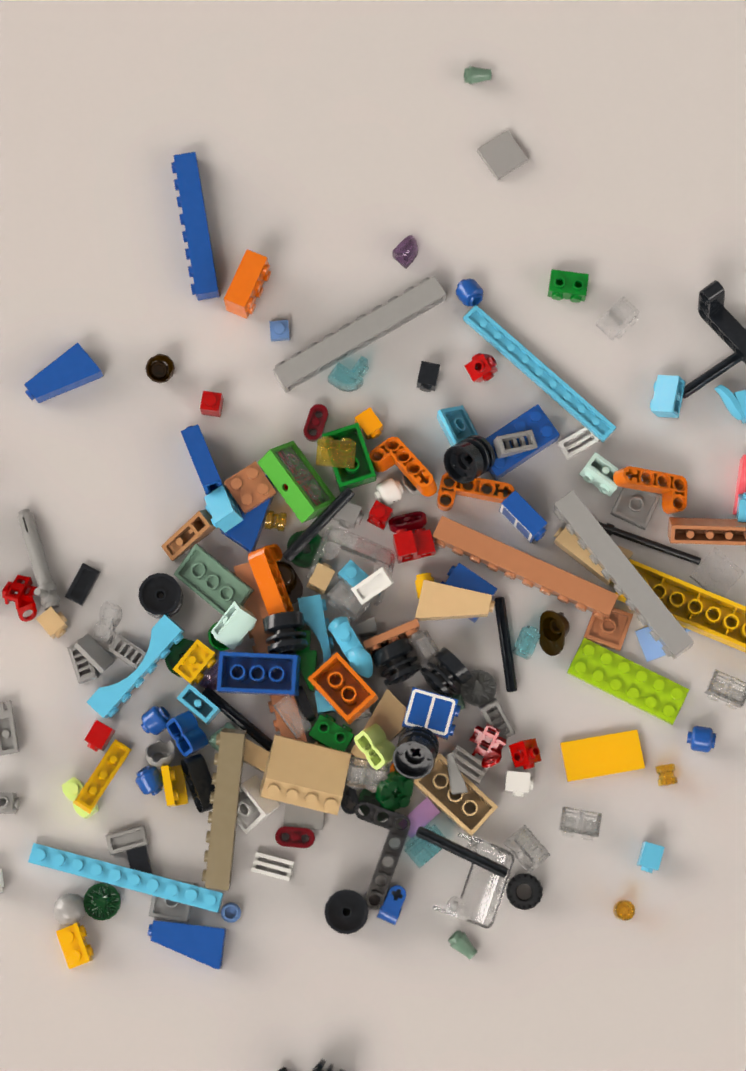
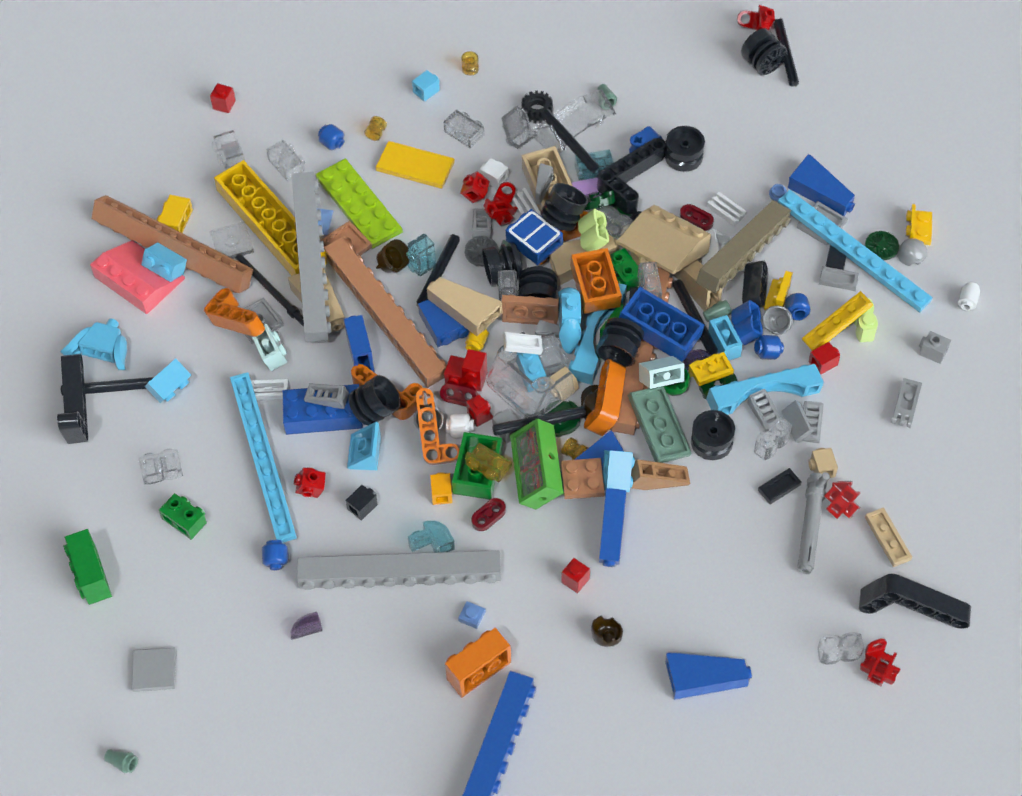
camera: 150 degrees left, 20 degrees down
(610, 197) = (86, 567): none -> green brick

